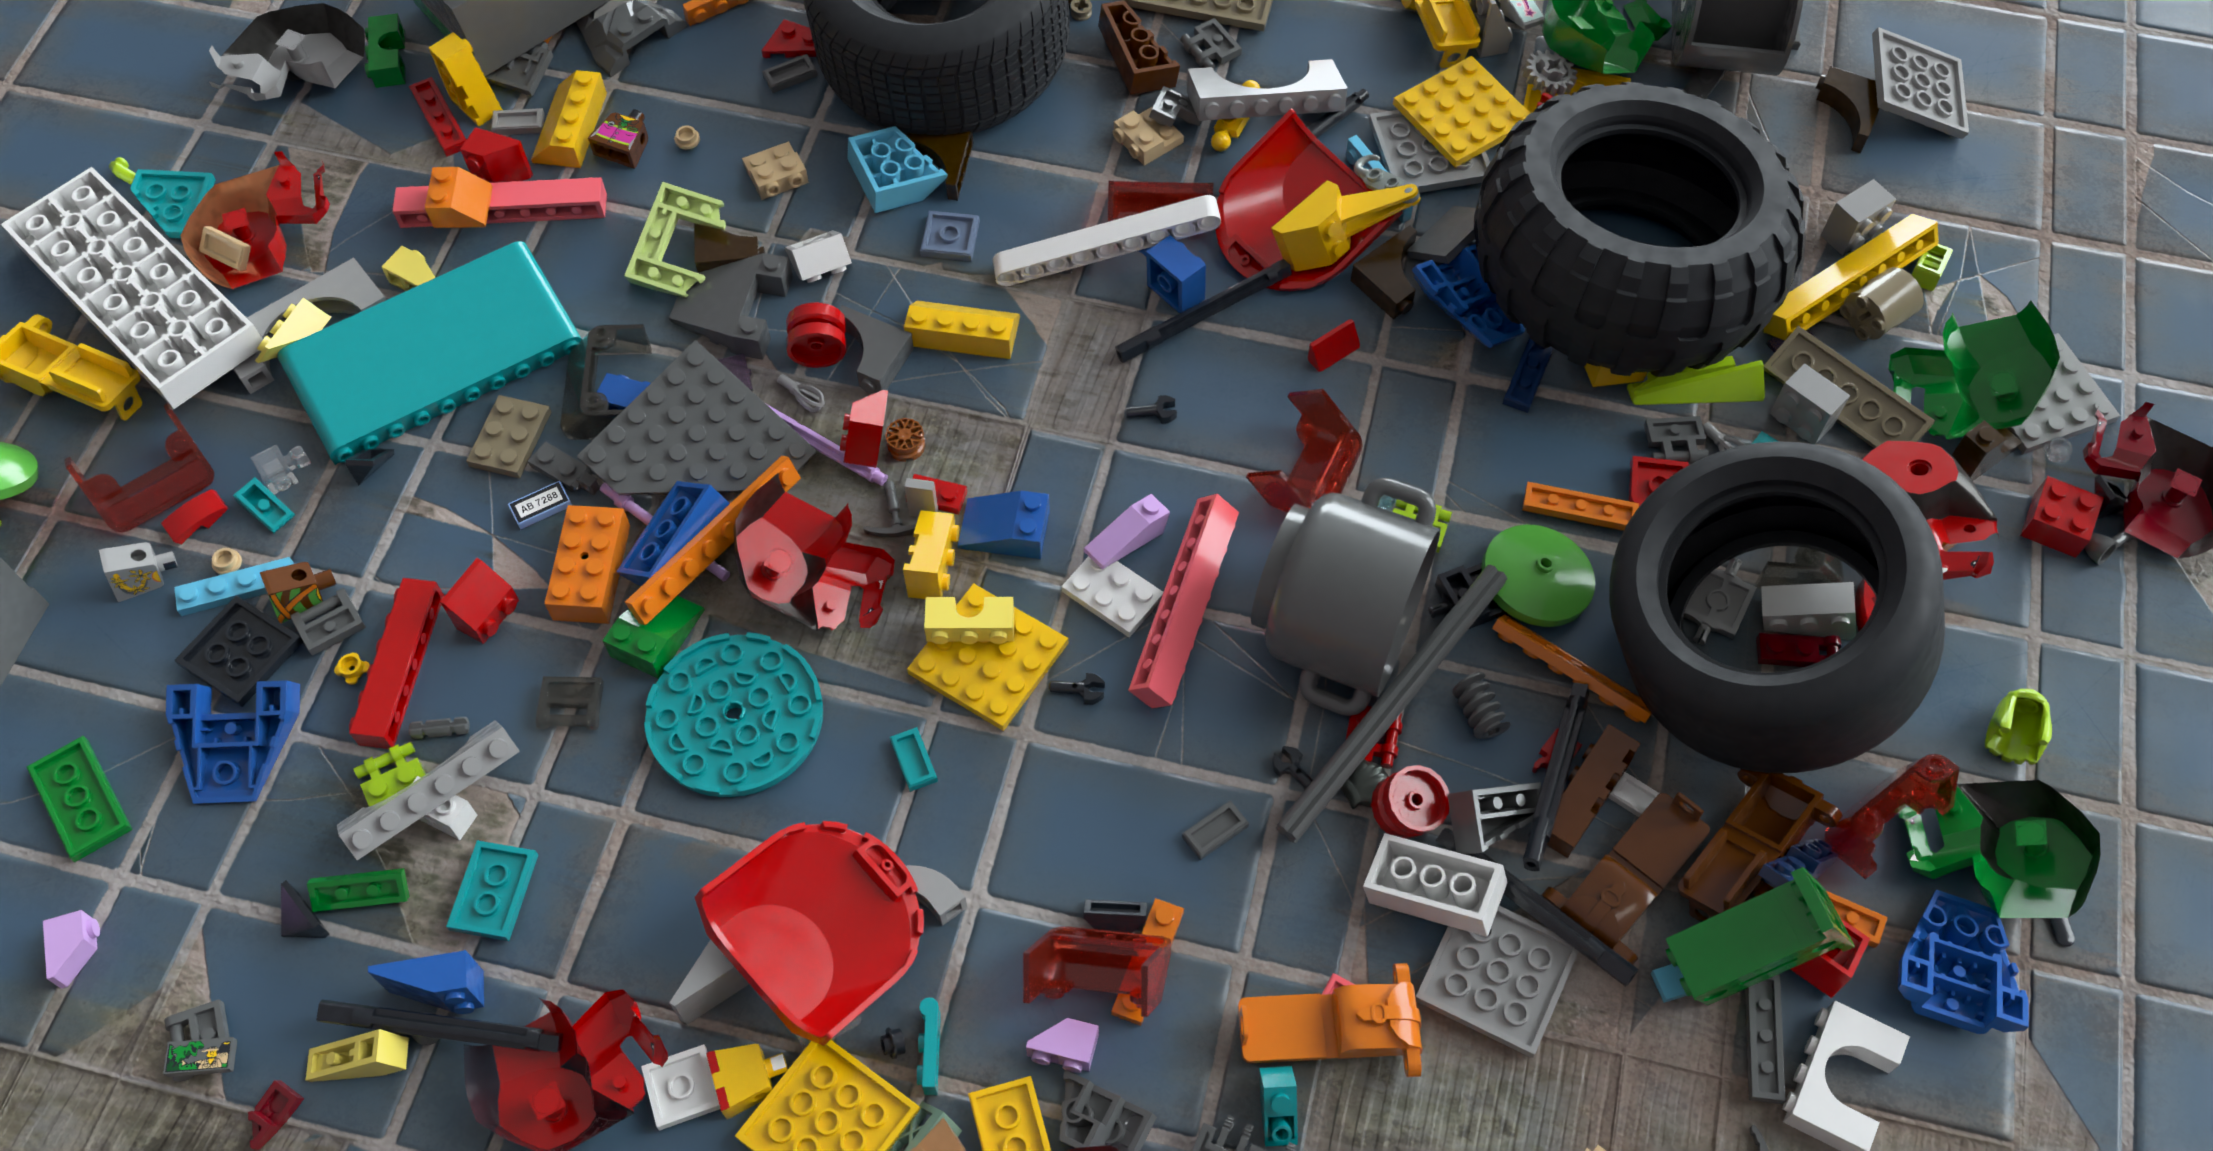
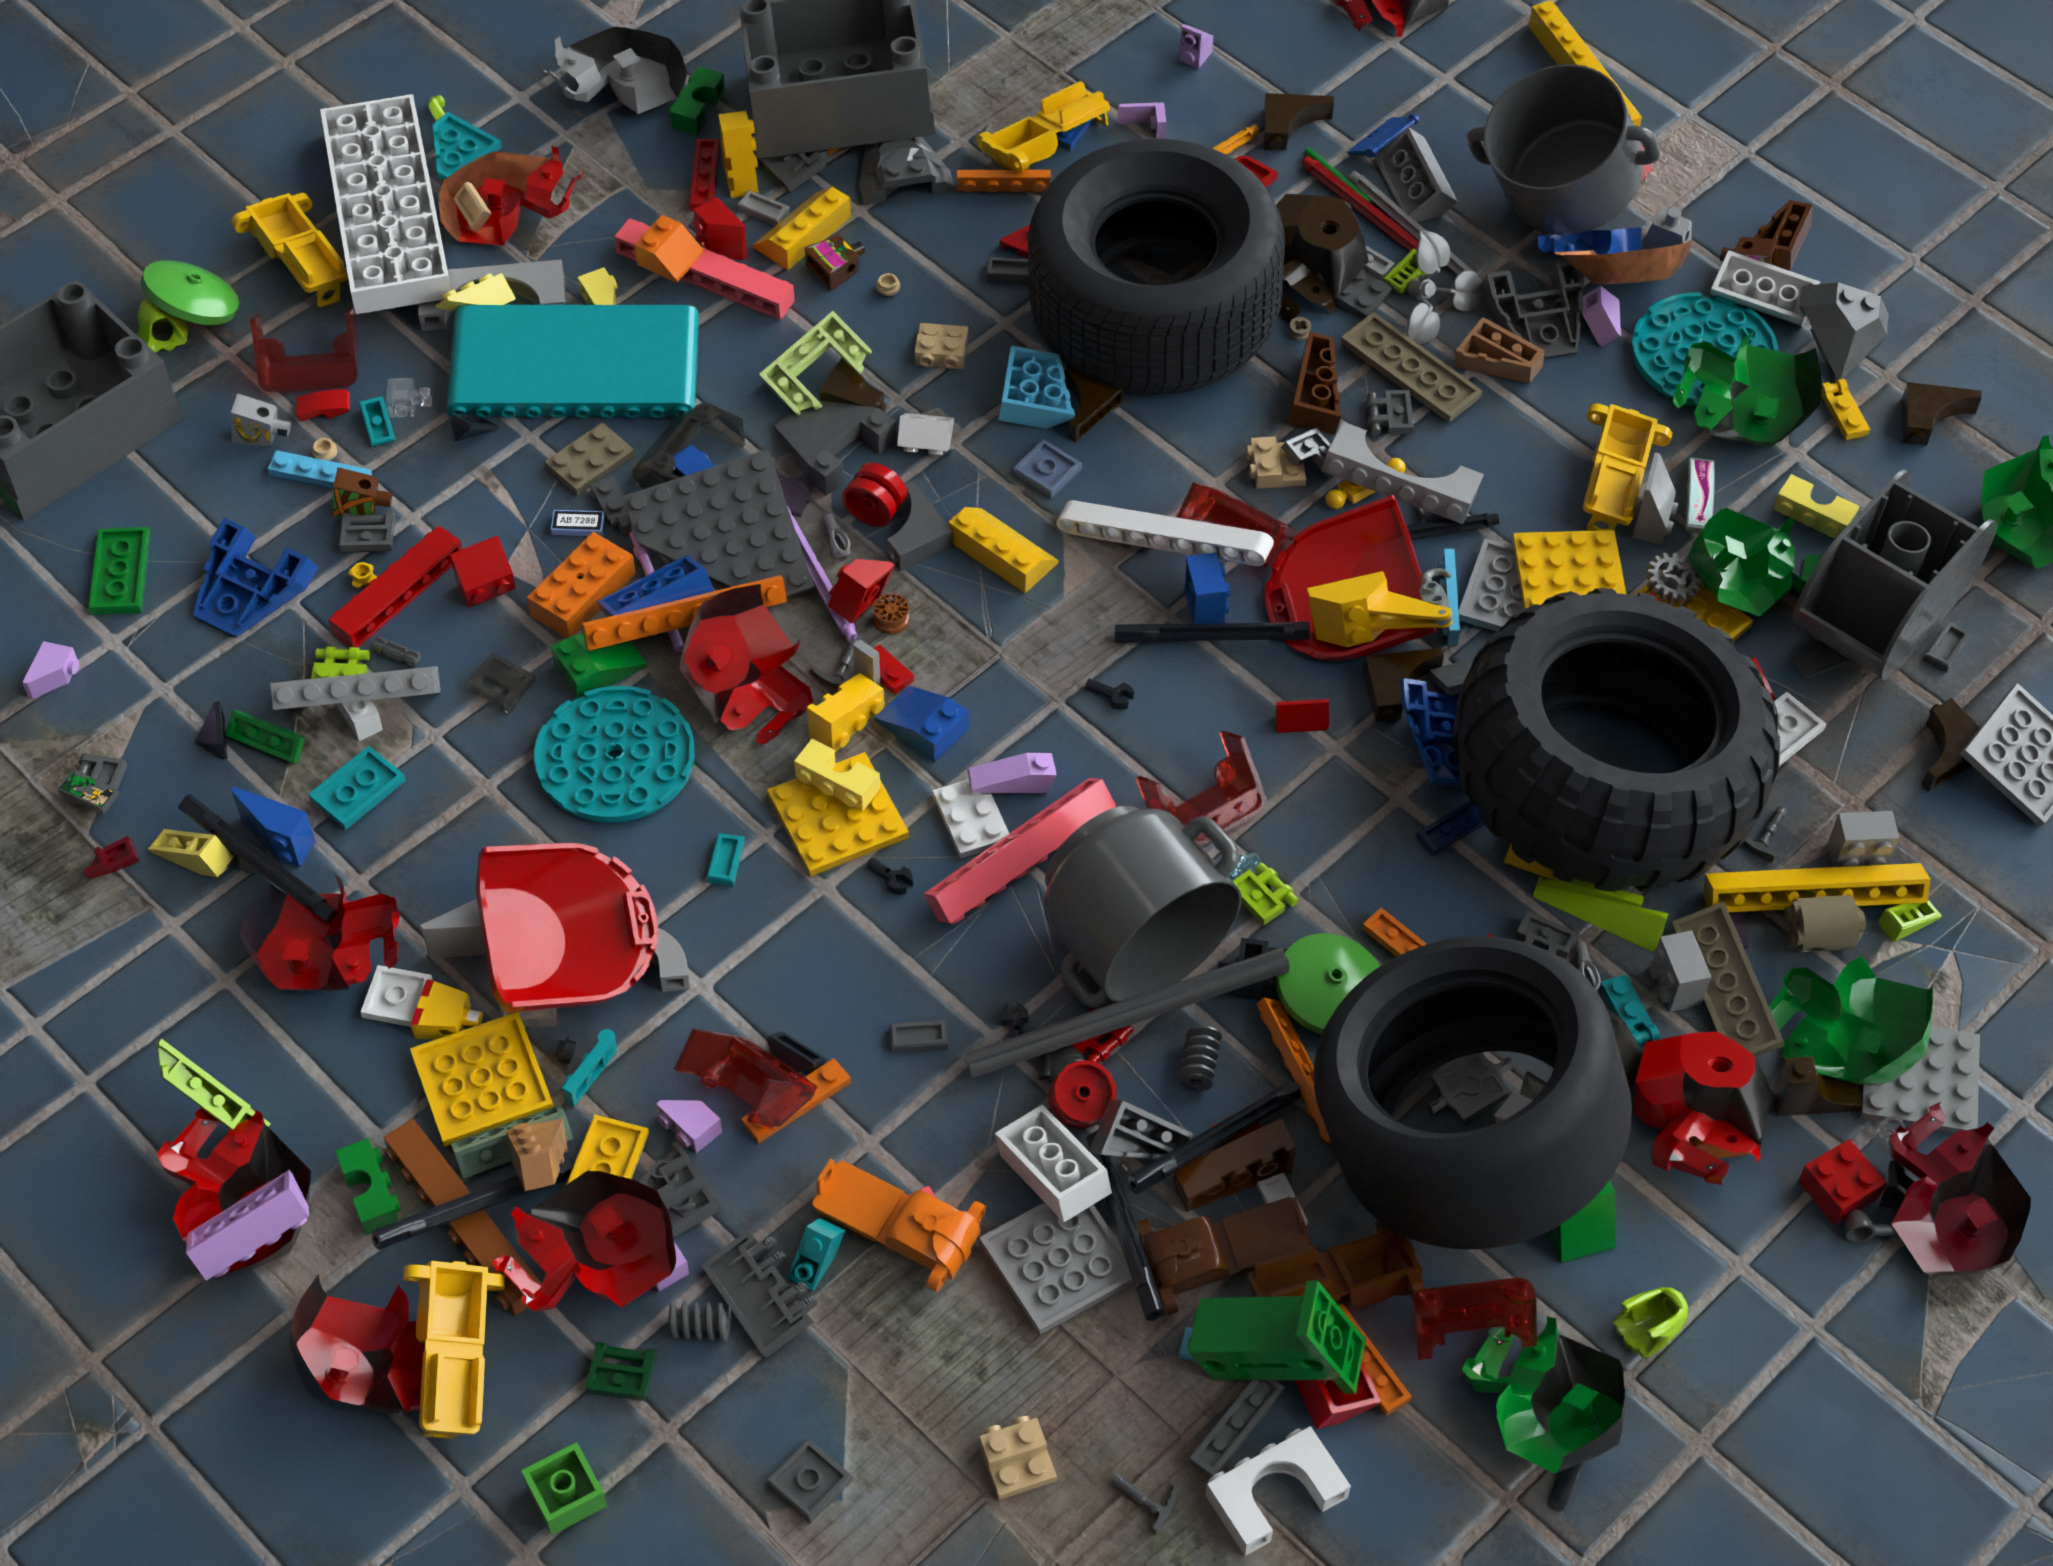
camera: 30 degrees right, 5 degrees down
(239, 650) = (292, 519): black plate -> none
(1810, 854) = (1373, 1315): dark blue slope -> none
(1961, 970) = (1438, 1462): blue wedge -> none

